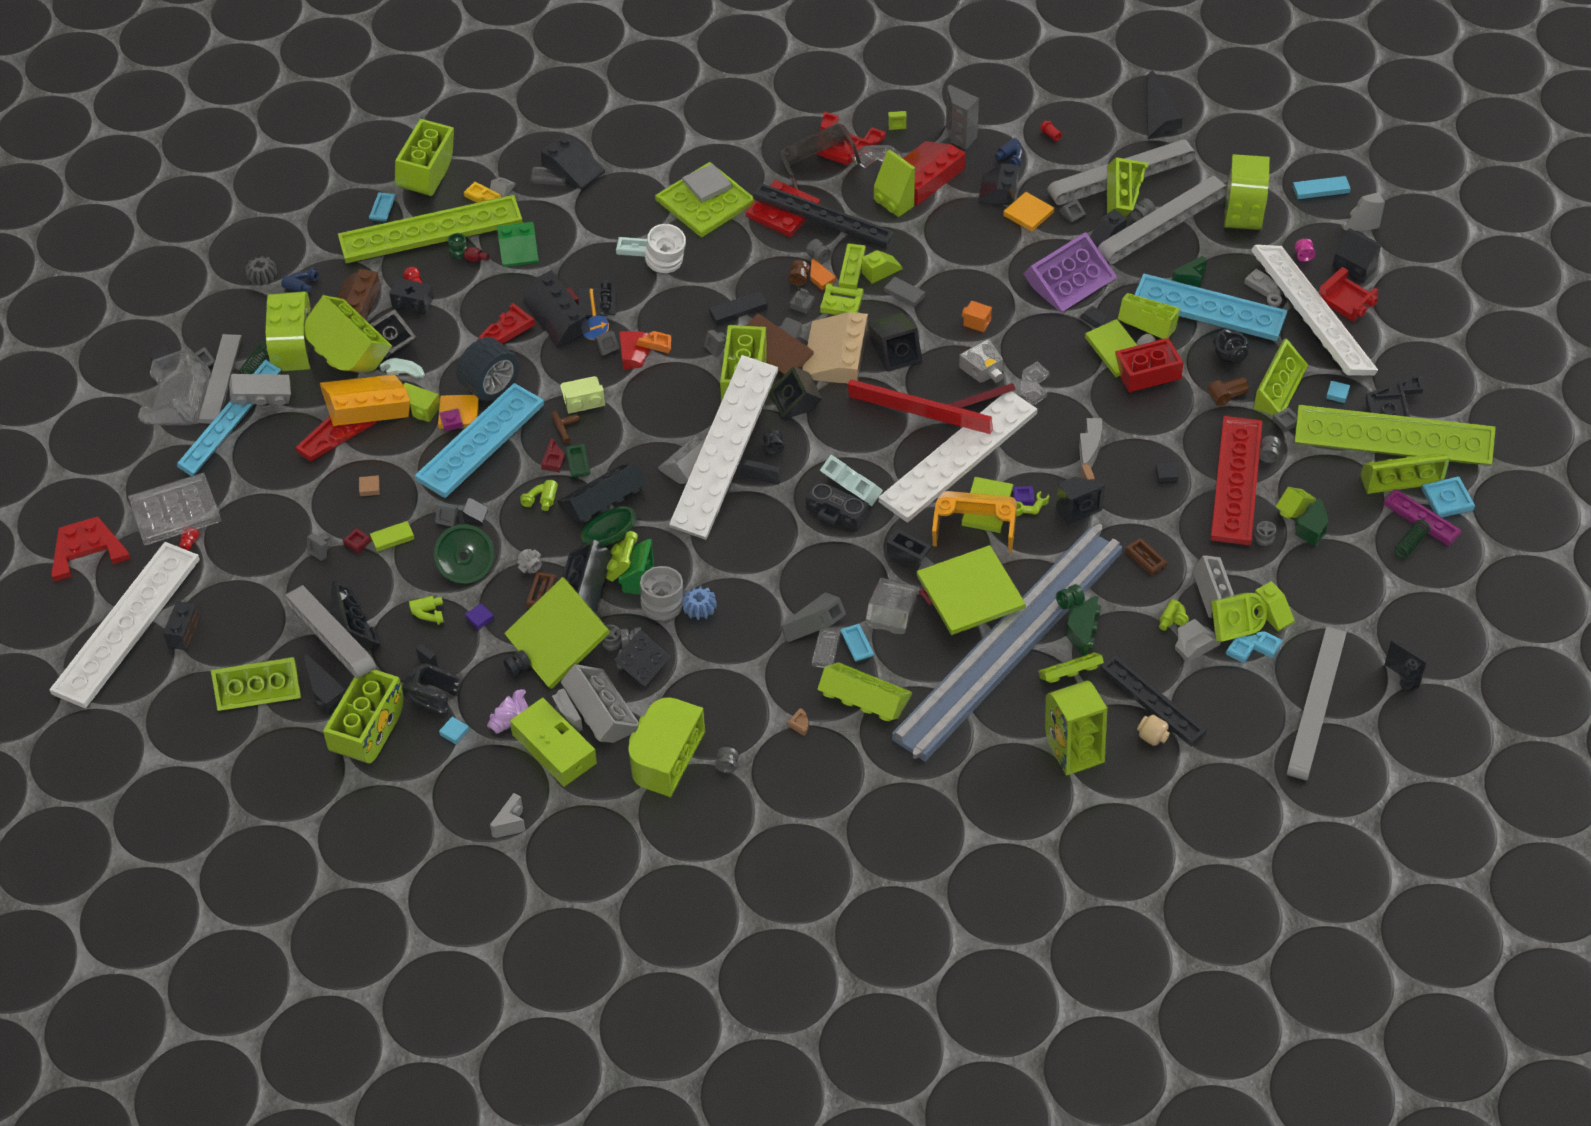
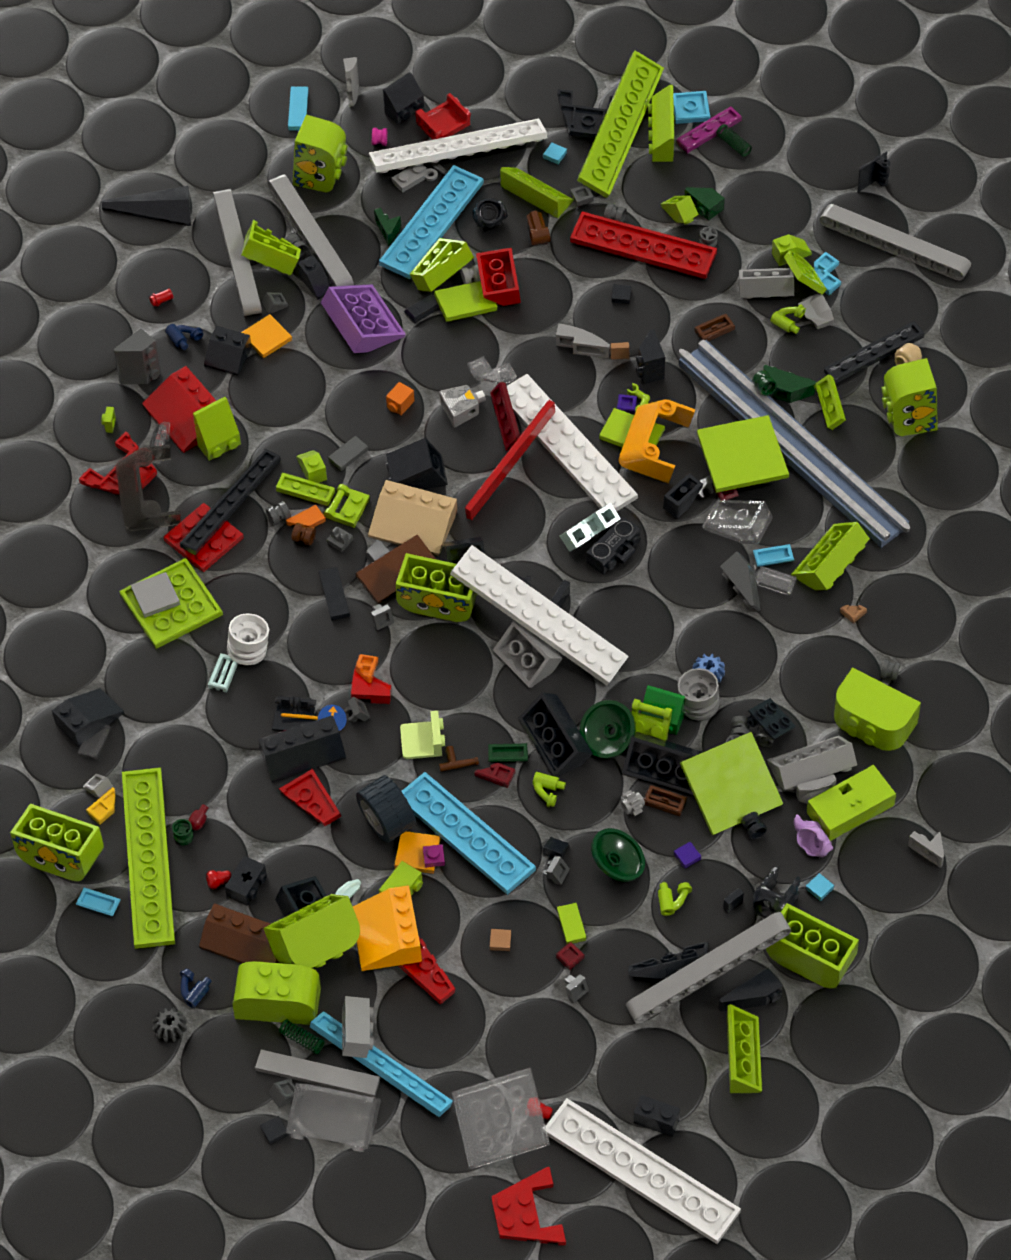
camera: 80 degrees left, 5 degrees up
(517, 244) = (197, 776): green slope -> none

